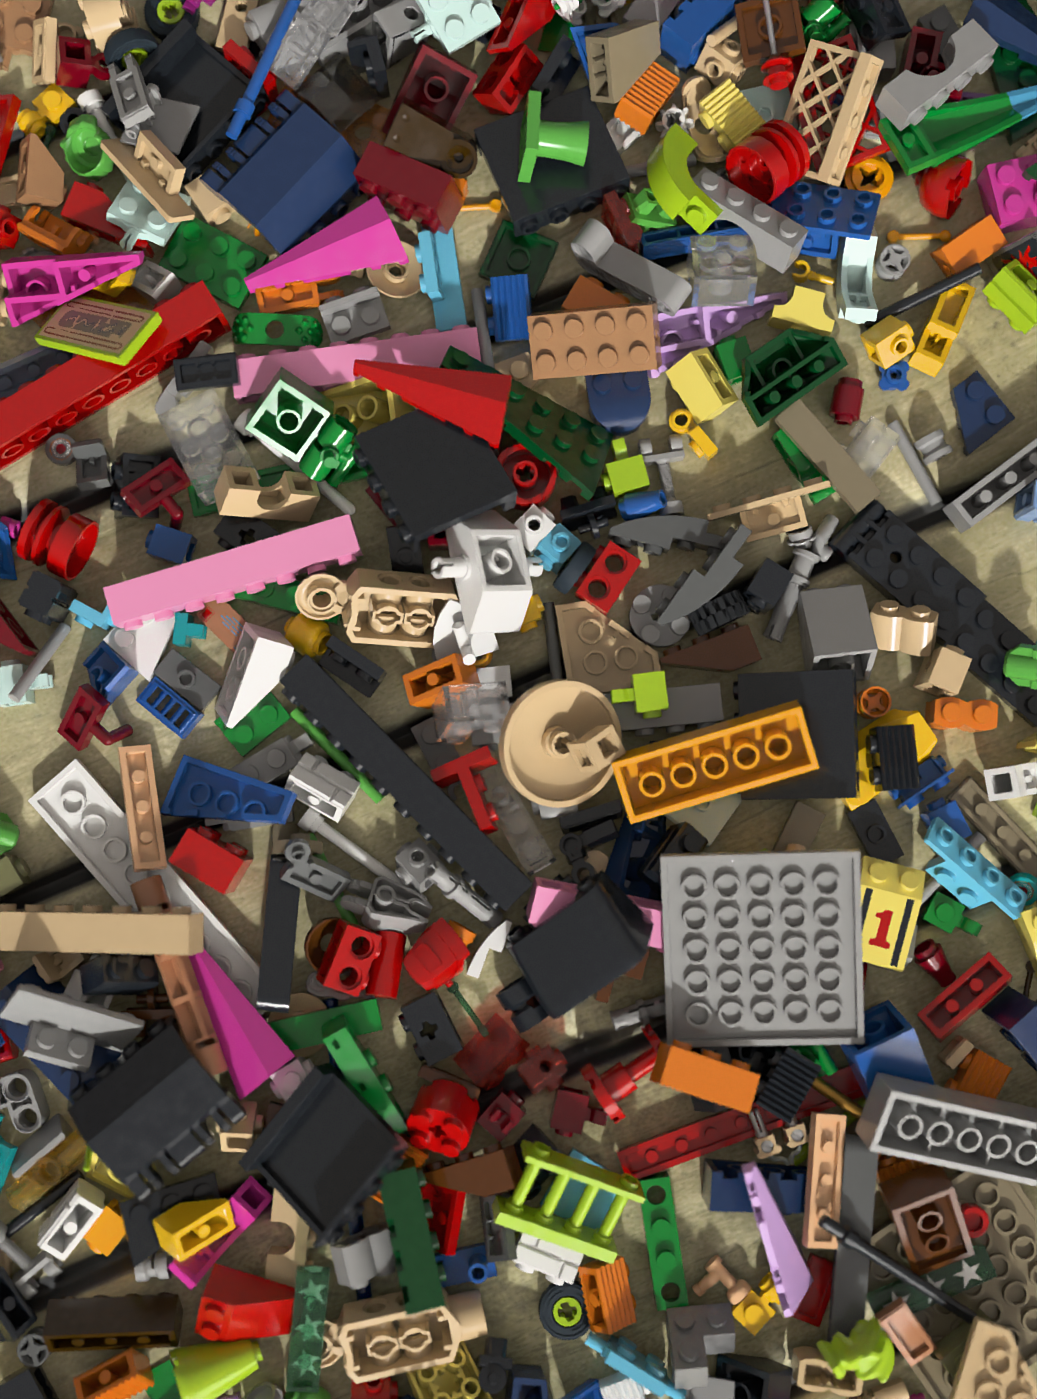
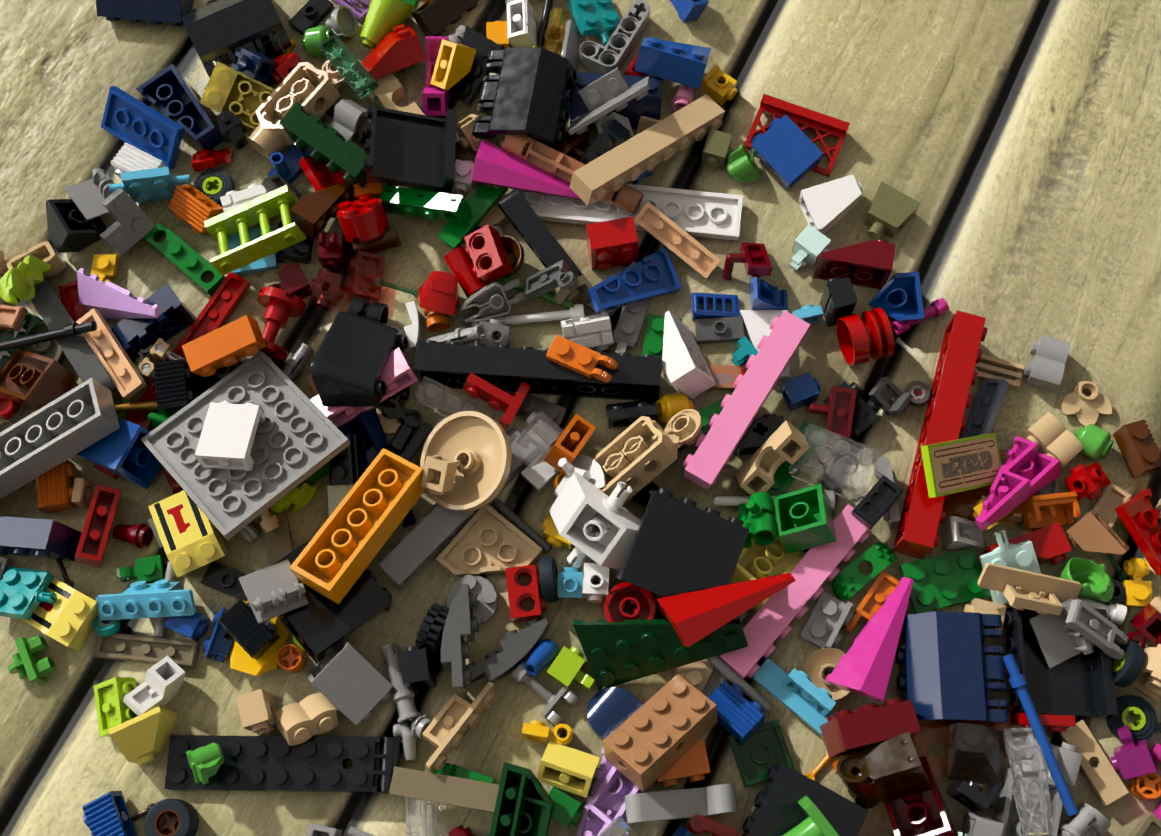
camera: 150 degrees right, 15 degrees down
(39, 662) = (808, 266): light grey bar -> none
(361, 749) = (580, 358): none -> orange hinge
(431, 1009) = (410, 261): black brick -> none
(546, 1351) = (209, 159): none -> red plate
(589, 515) = (566, 634): black hips -> none
(646, 692) = (438, 535): lime brick -> none
(716, 1271) = (122, 268): light nougat piece -> none
(722, 653) = (411, 608): reddish brown slope -> none
(775, 960) = (229, 436): none -> white panel
(848, 765) = (273, 591): none -> light grey hinge
(956, 713) = (221, 702): orange brick -> none

